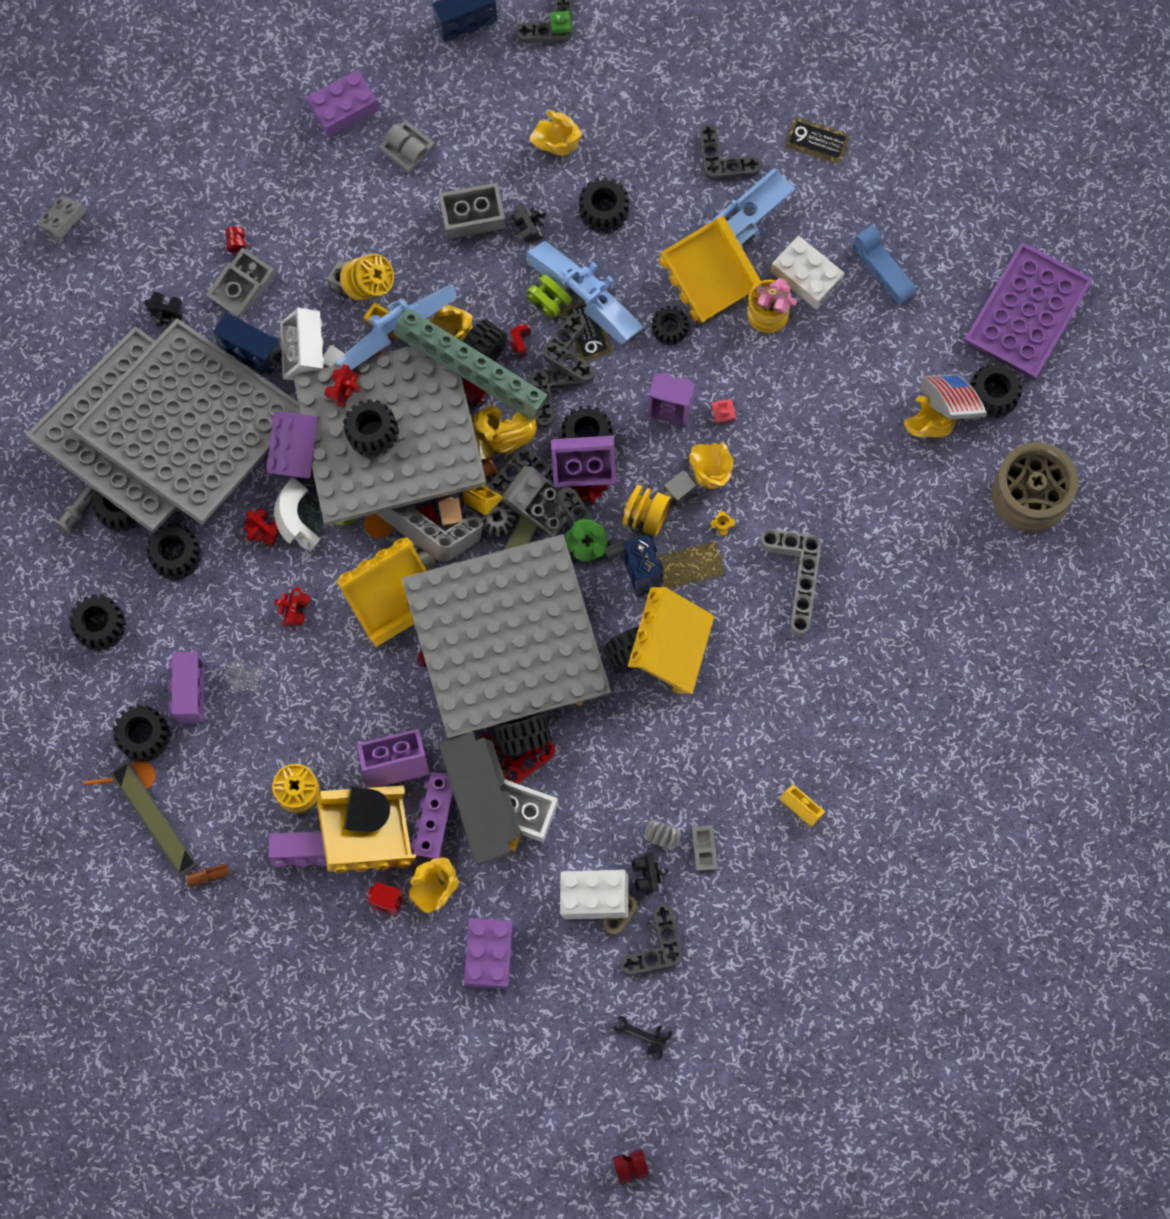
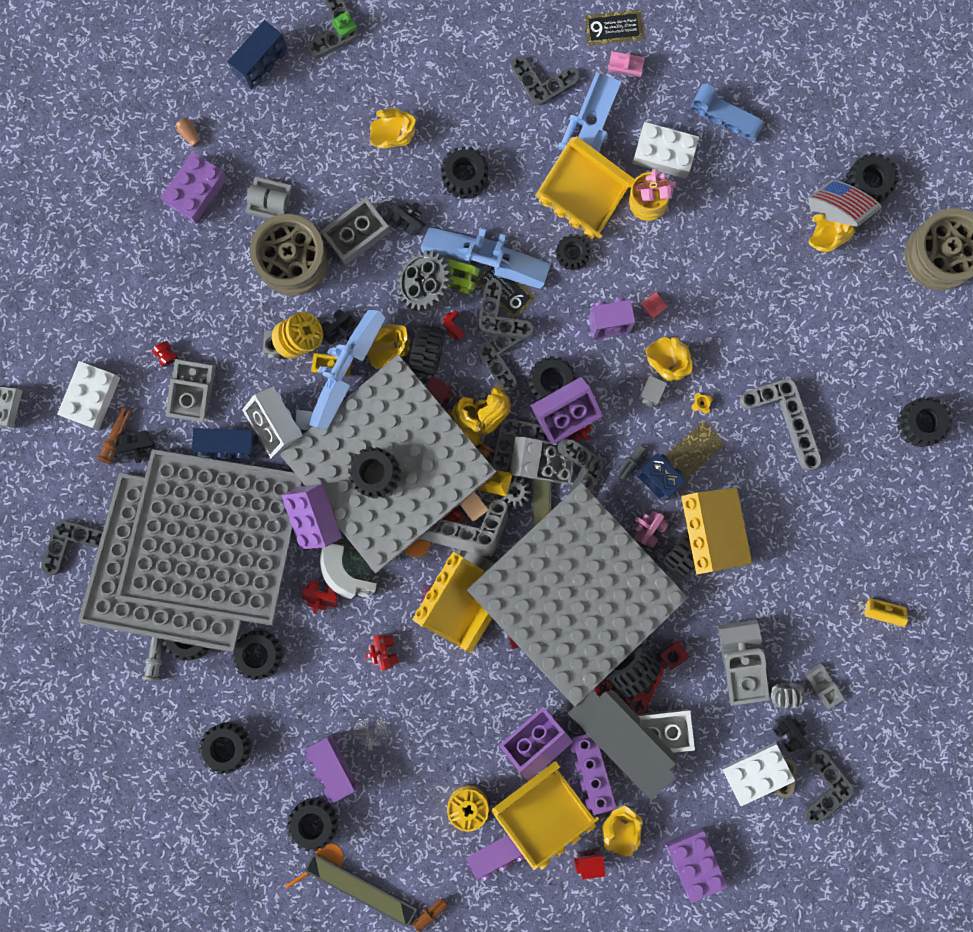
camera: 25 degrees left, 10 degrees up
(52, 362) = (64, 539): none -> dark grey beam
(137, 301) = (109, 448): none -> dark orange pin
(145, 243) = (88, 395): none -> white brick
(344, 385) = (331, 445): red hips -> none
(364, 51) = (187, 130): none -> nougat cone
(366, 810) = (538, 801): black tile -> none
(399, 180) = (289, 254): none -> dark tan wheel
(410, 291) = (339, 328): none -> black hips
(470, 364) = (429, 374): sand green brick -> none
(513, 284) = (424, 280): none -> dark grey gear
(577, 533) = (608, 474): bright green plate -> none
(577, 738) = (681, 653): none -> dark red brick
(619, 611) = (647, 526): none -> bright pink hips
(635, 783) = (744, 662): none -> light grey piece
(646, 510) = (637, 425): yellow wheel -> none
(658, 1042) = (867, 866): black bar -> none
(810, 177) = (626, 64): none -> bright pink hips
(920, 653) = (937, 413): none -> black tyre
(1028, 310) = (863, 95): medium lavender plate -> none

